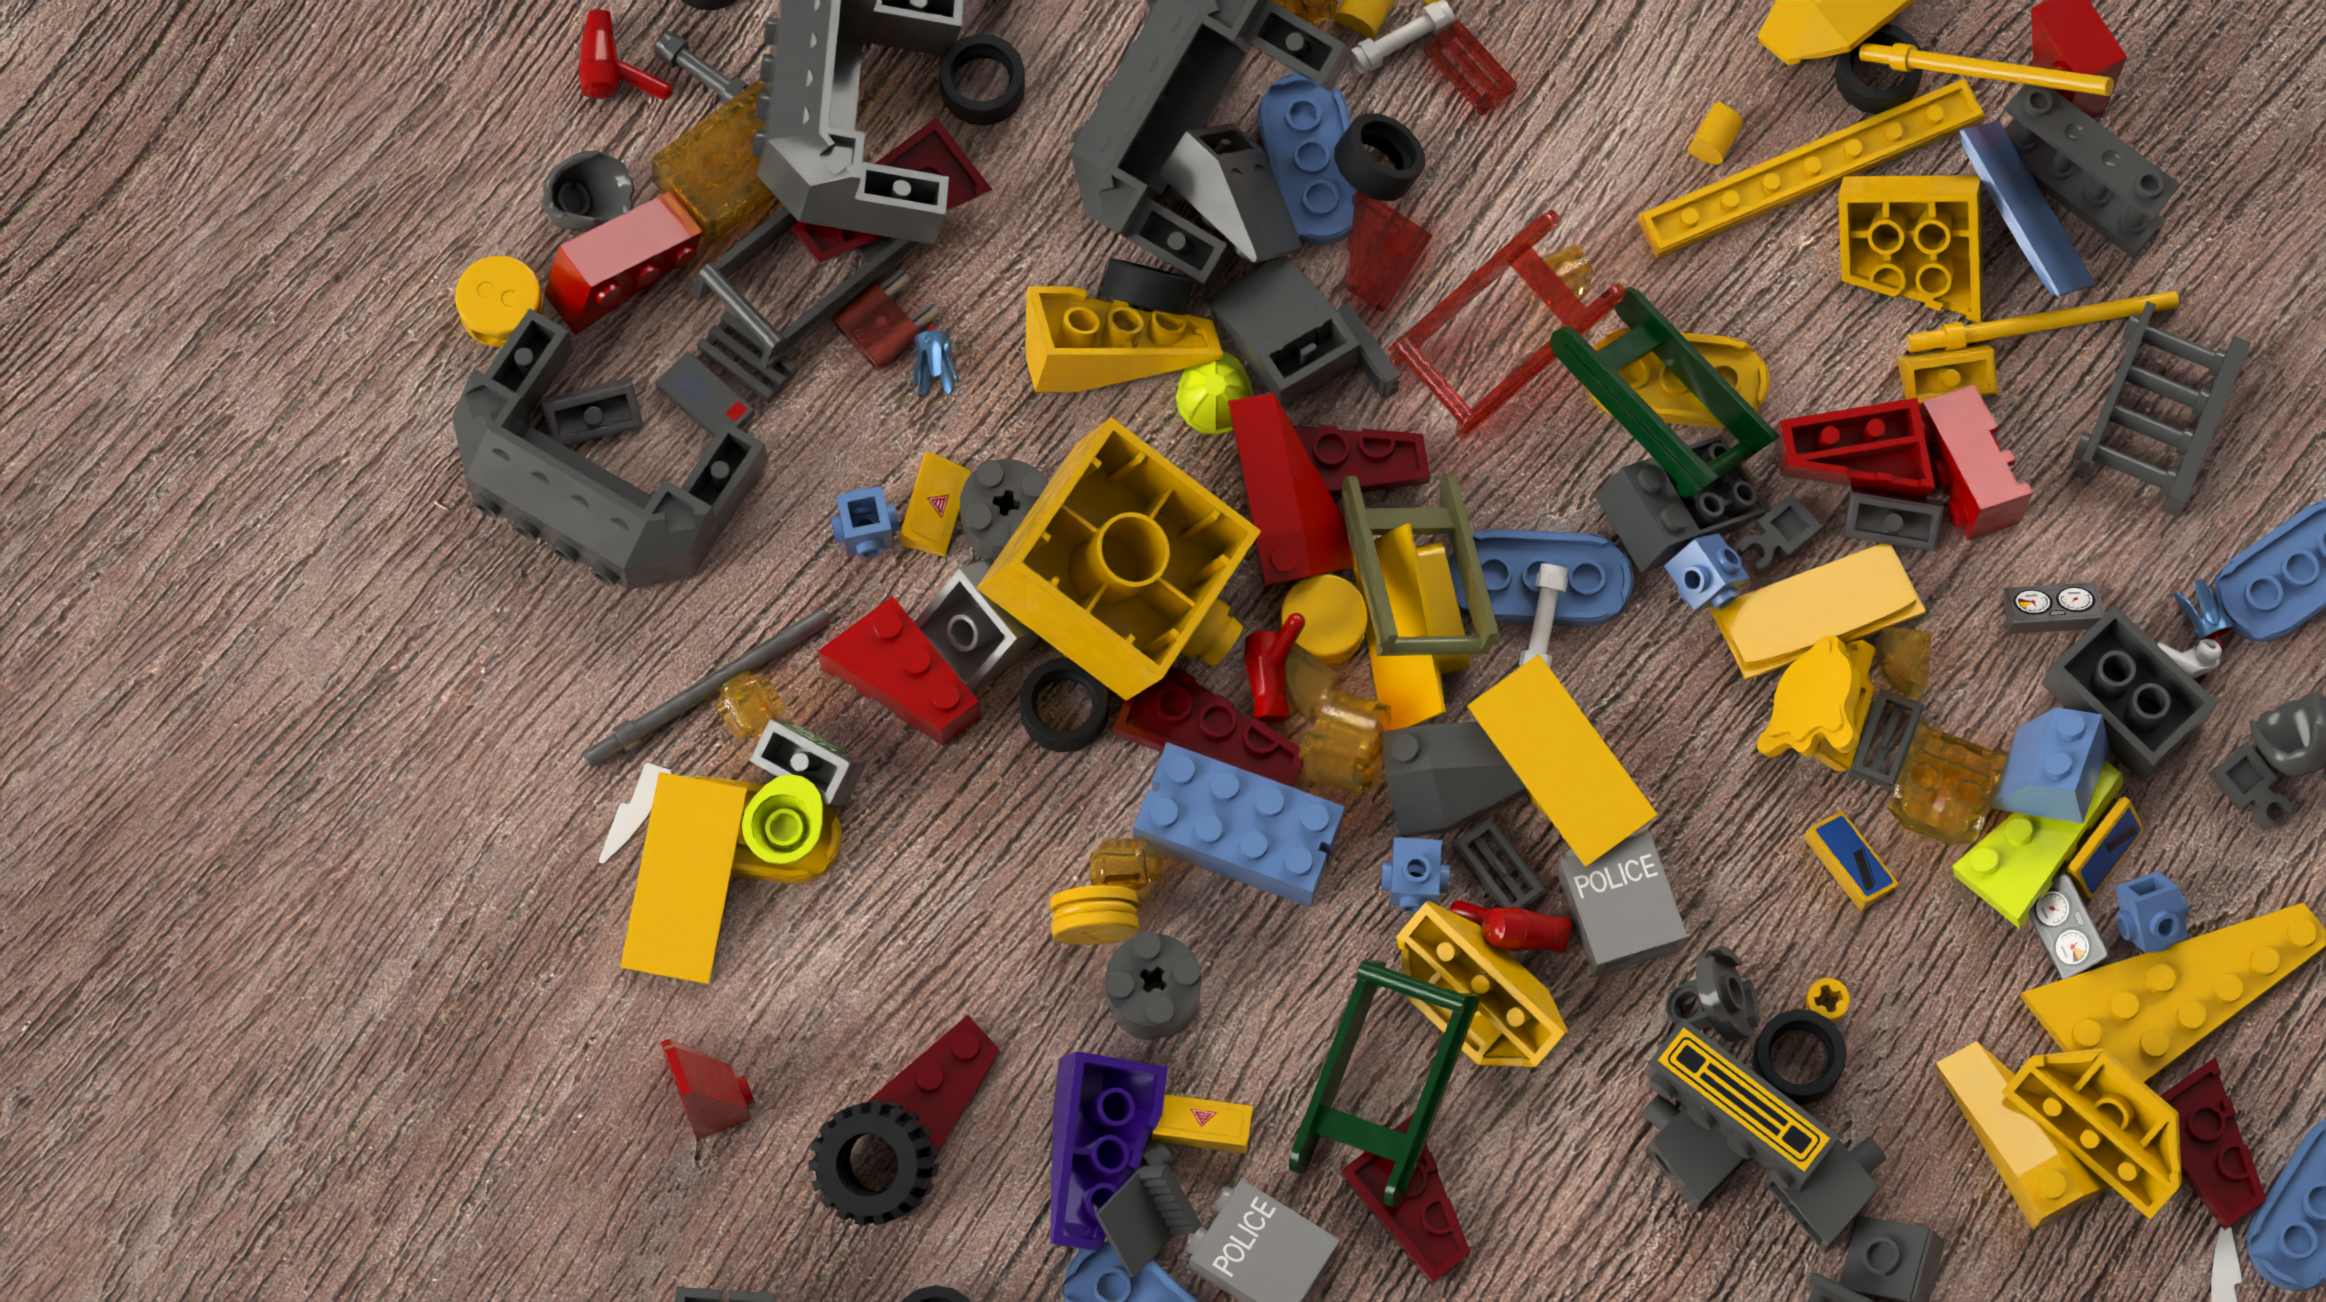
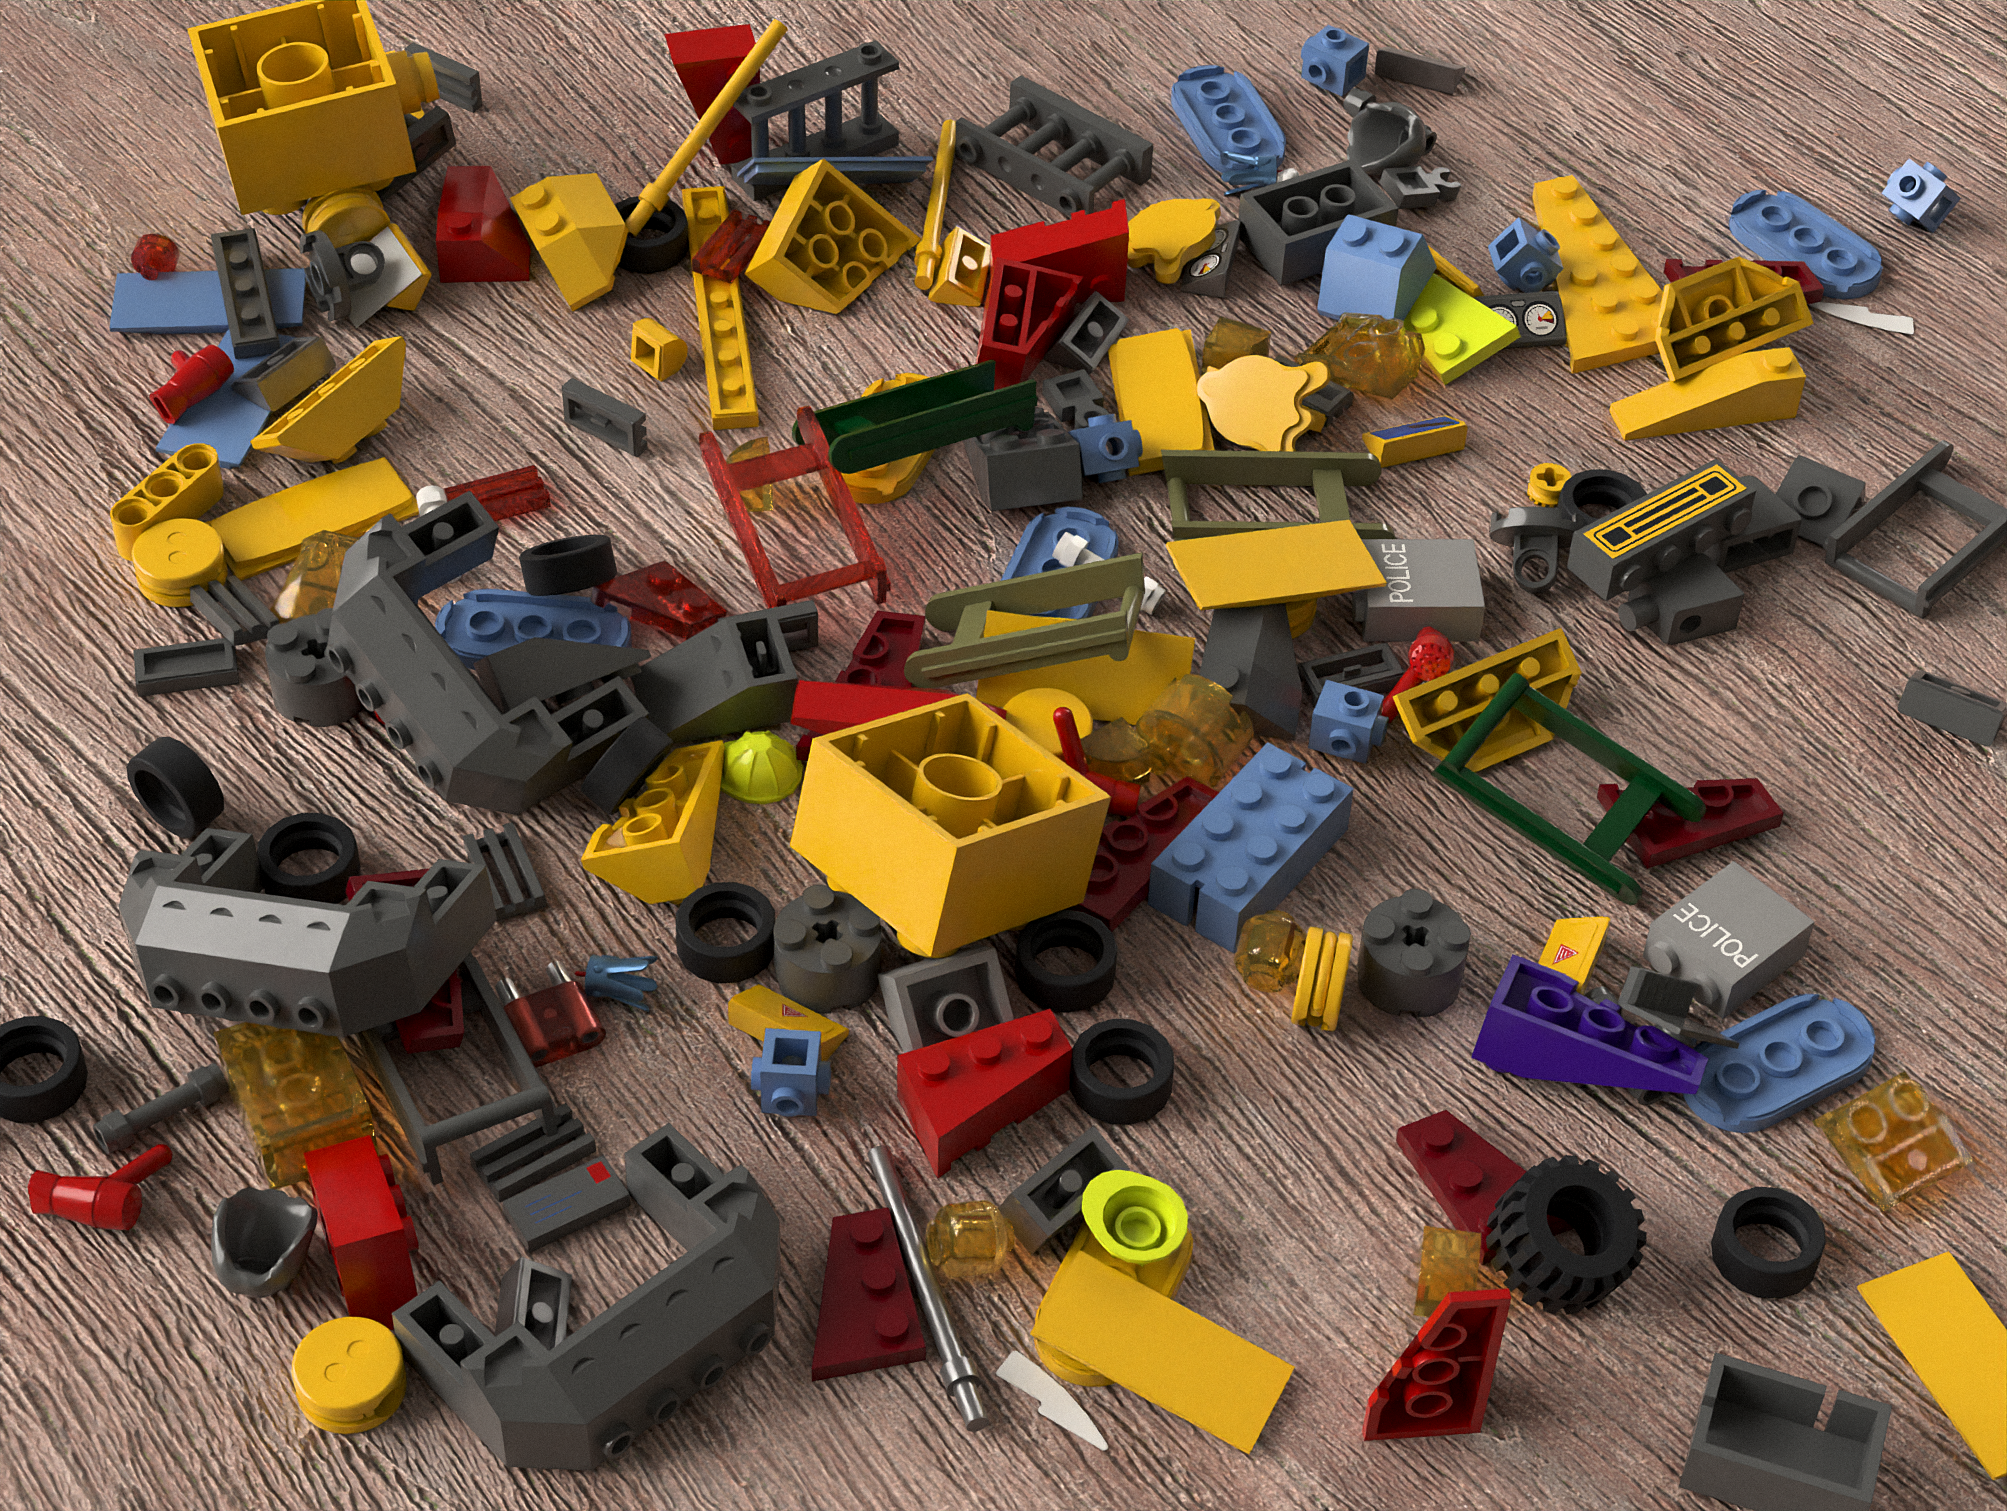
camera: 75 degrees left, 25 degrees down
(681, 646) = (865, 1301): none -> dark red wing
(826, 1081) = (1445, 1264): none -> clear yellow brick
(950, 745) = (1123, 1038): none -> black tyre
(1011, 223) = (493, 843): none -> dark grey tile
(1011, 393) = (719, 902): none -> black tyre
(1597, 120) = (604, 417): none -> dark grey tile
(1713, 801) = (1323, 470): none -> olive piece
(1882, 136) = (724, 245): none -> clear red tile
(2064, 554) = (1172, 235): none -> yellow tile

